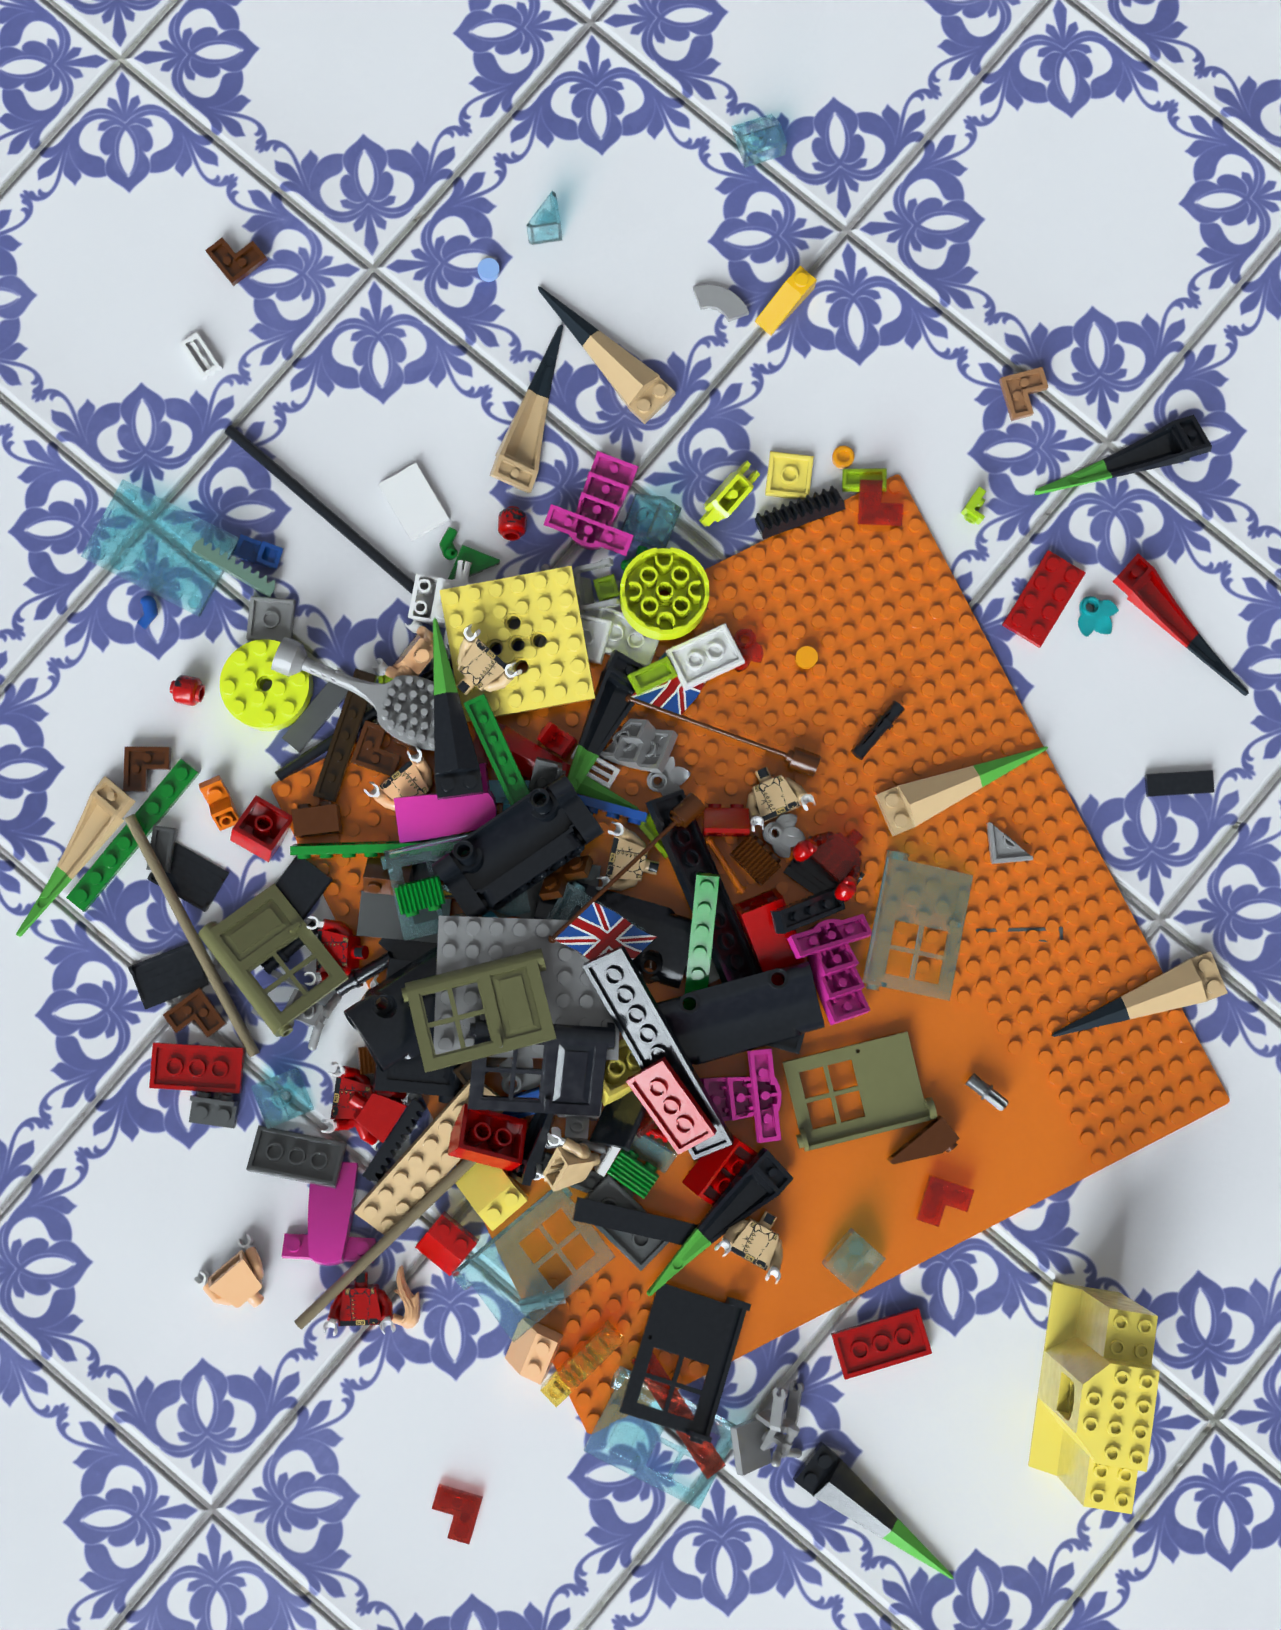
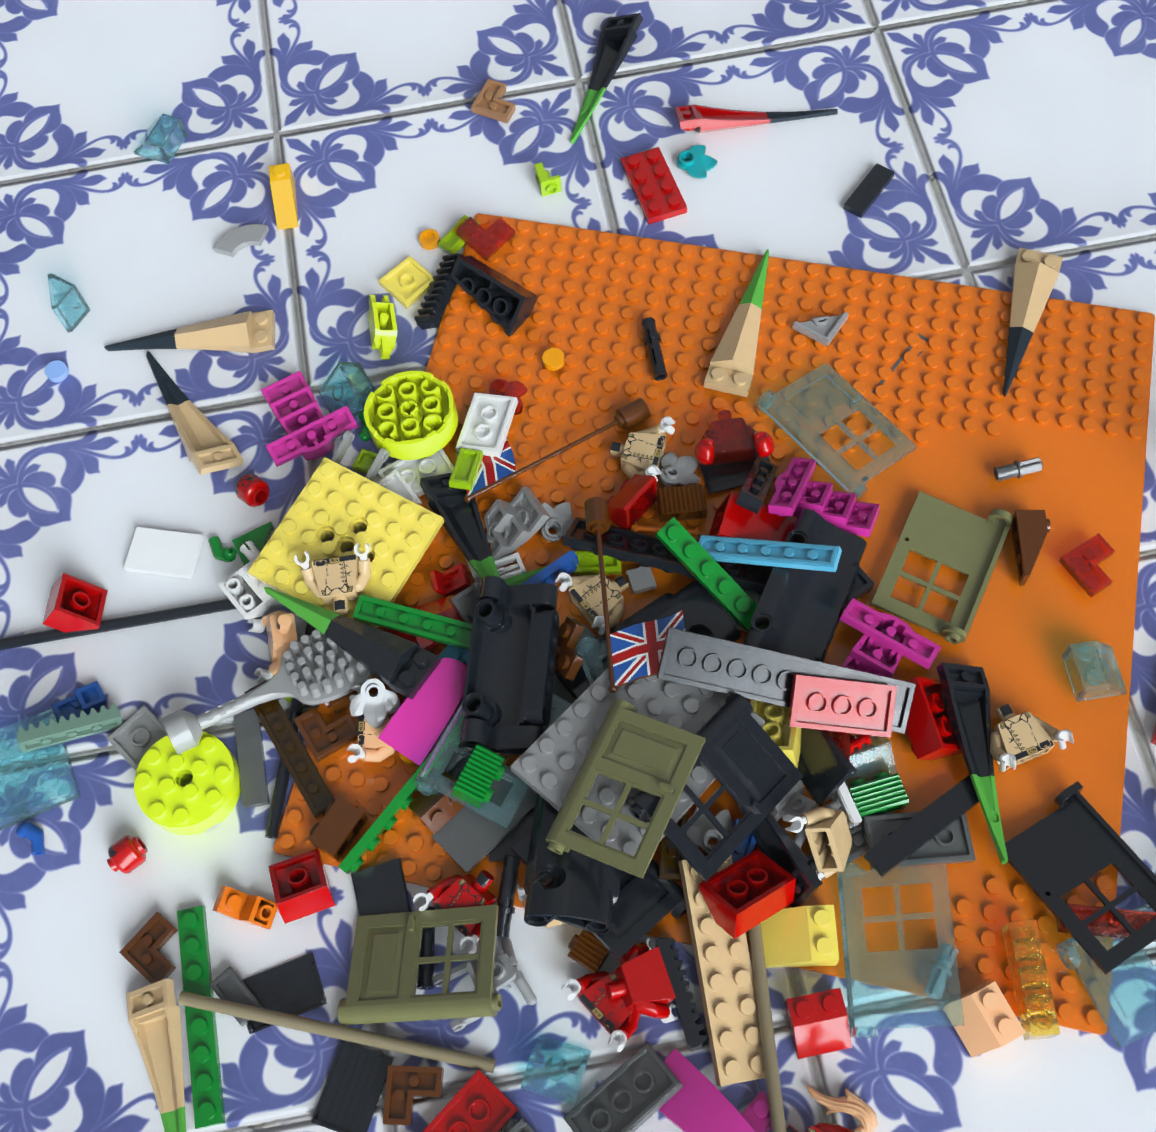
camera: 40 degrees left, 20 degrees down
(320, 480) = (74, 605): none -> red slope
(414, 774) = (375, 706): none -> light grey plate
(668, 879) = (641, 579): none -> light grey tile
(749, 965) = (772, 553): none -> medium azure tile
(828, 560) = (494, 292): none -> black wedge

